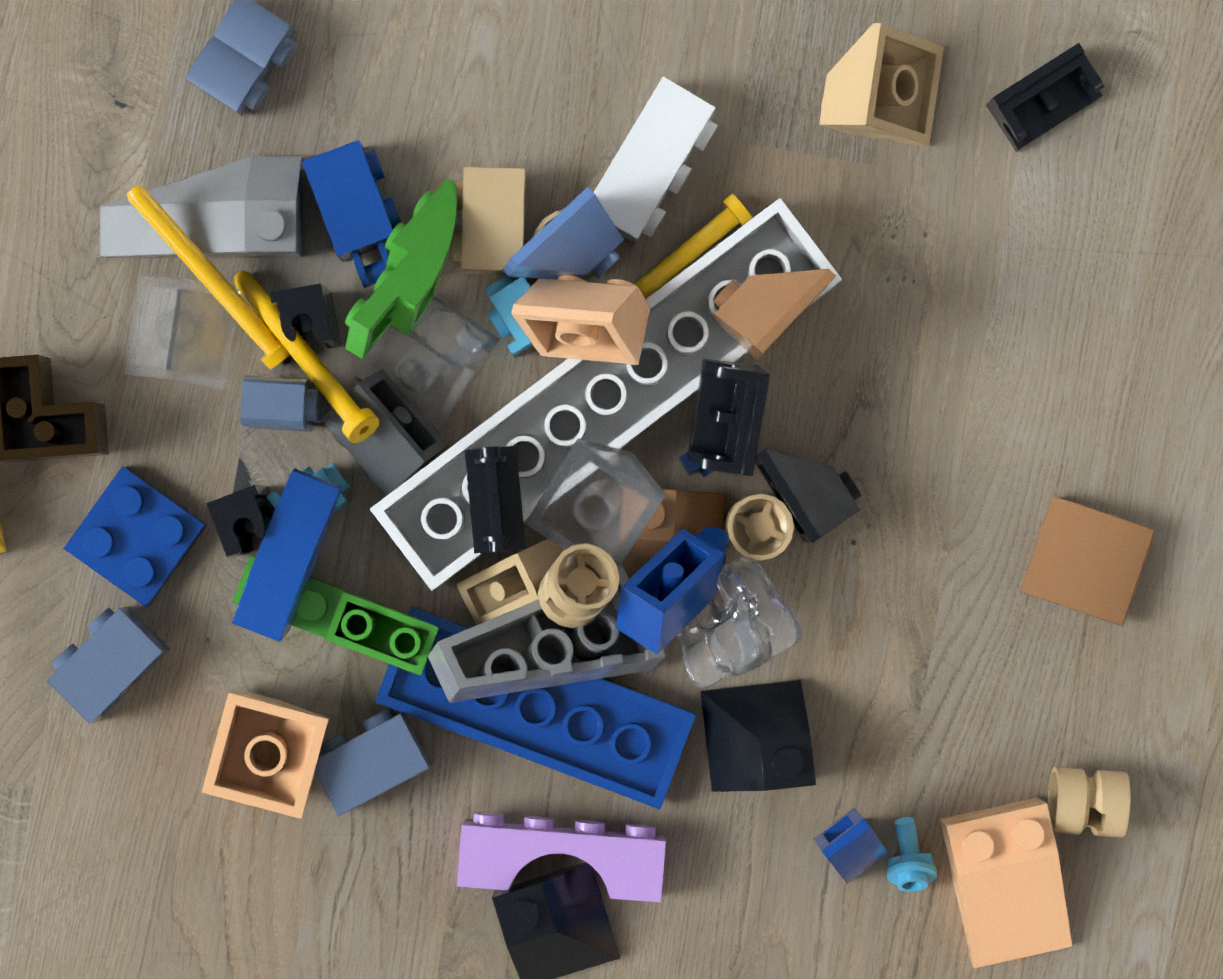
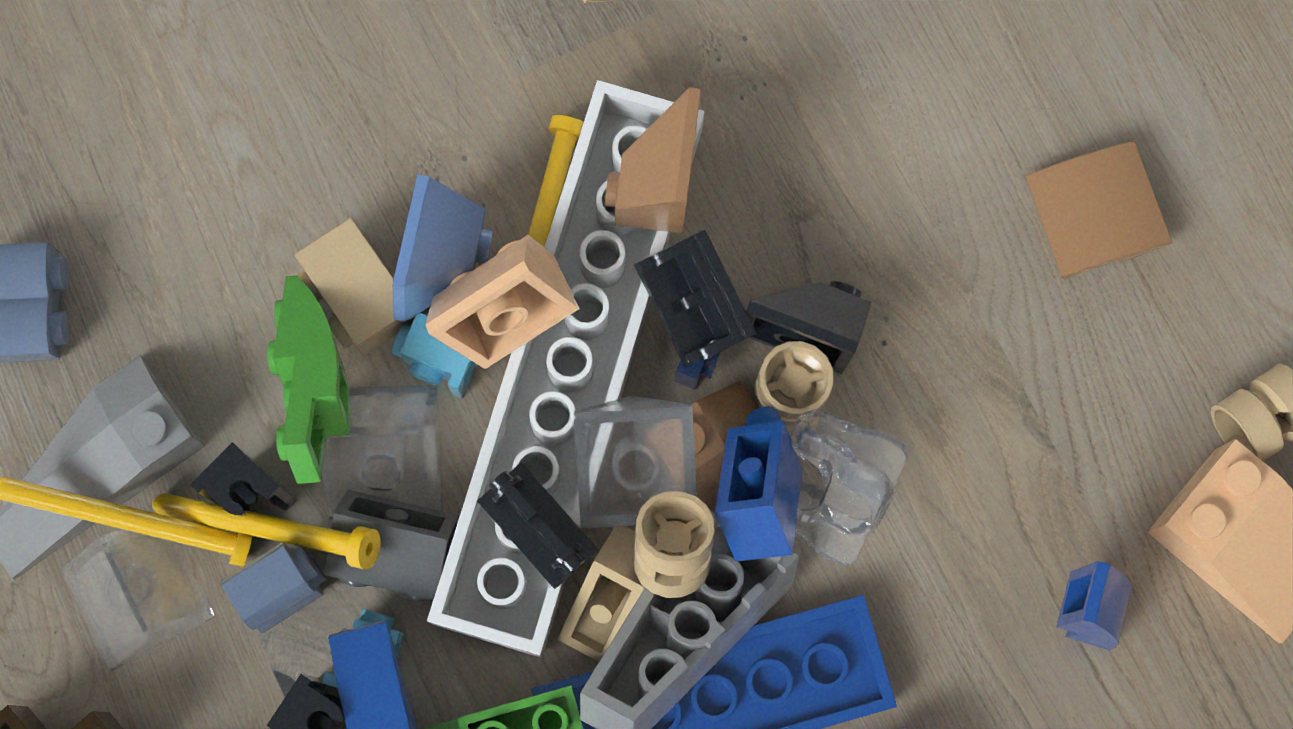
camera: 40 degrees left, 10 degrees down
(353, 205) = (216, 362): blue brick -> none
(654, 159) = (459, 126): white brick -> none
(758, 737) = (935, 575): black slope -> none
(912, 869) = (1160, 593): medium azure plate -> none

